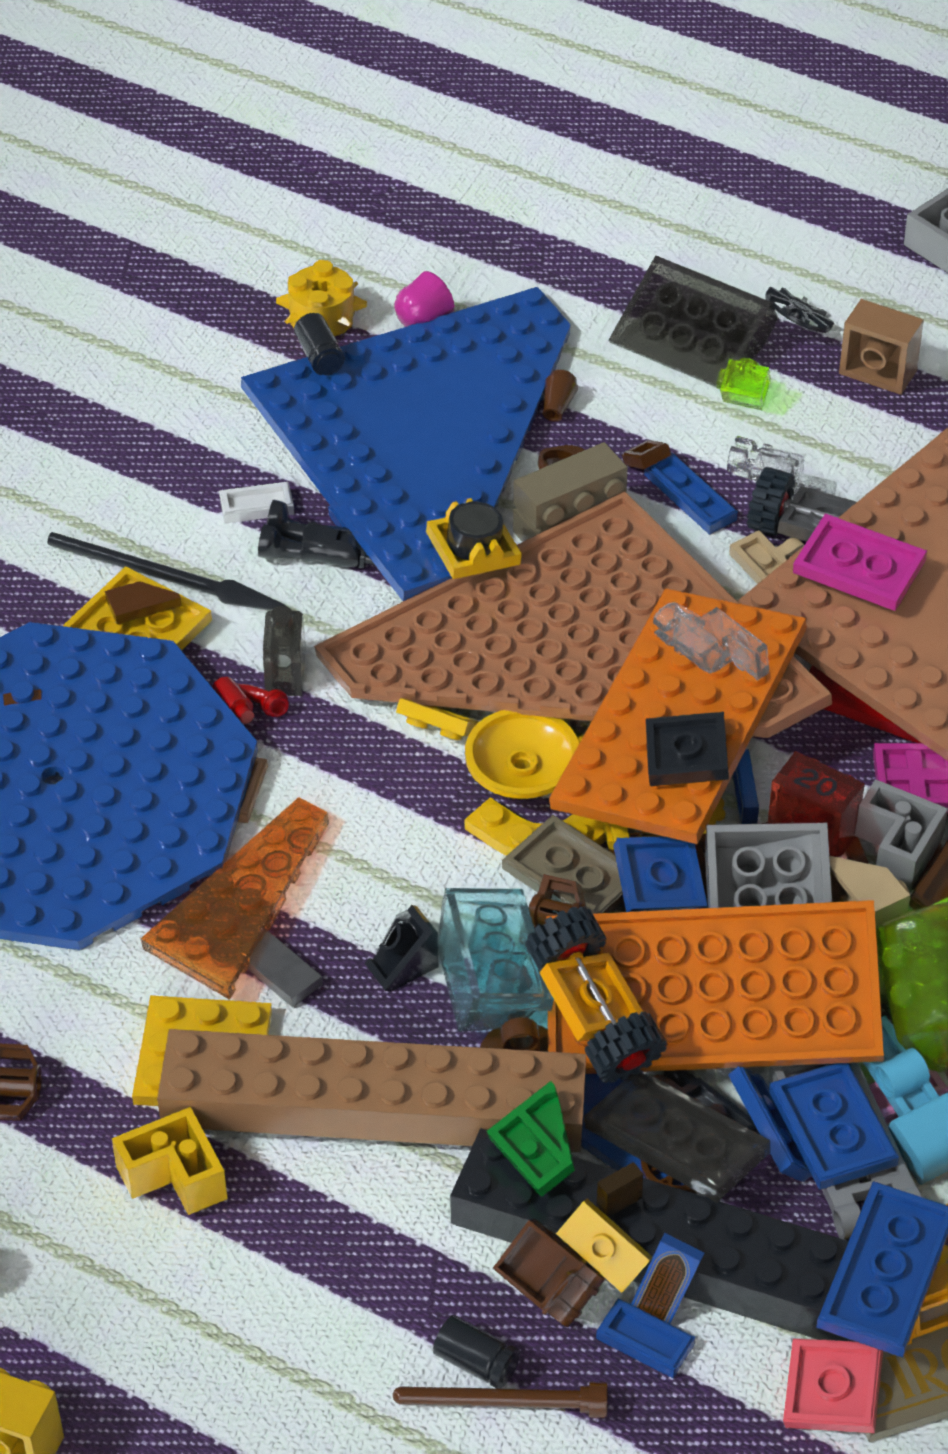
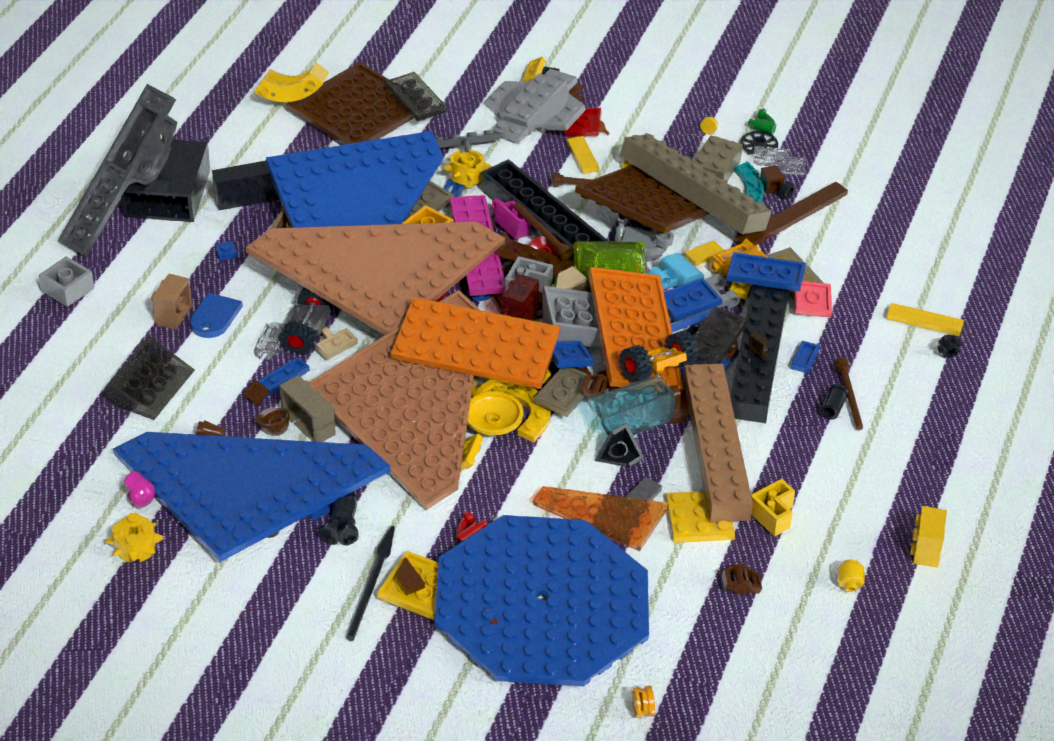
camera: 100 degrees left, 5 degrees down
(253, 501) = (308, 551): white tile -> none
(284, 636) = (435, 512): clear smoke torso -> none
(319, 344) = (197, 515): black piece -> none
(473, 539) = (357, 433): piece -> none
(536, 1140) = (740, 371): green wing -> none
(549, 1273) = (793, 377): reddish brown piece -> none
(604, 1245) = (780, 355): yellow plate -> none
(667, 1278) = (786, 340): tile -> none
(686, 749) = (512, 328): black tile -> none
(711, 640) = (442, 321): clear plate -> none
(744, 383) = (200, 354): clear neon green brick -> none
(799, 310) = (135, 338): black wheel -> none
(860, 562) = (369, 281): dark pink plate -> none
(867, 416) = (216, 314): none -> blue tile

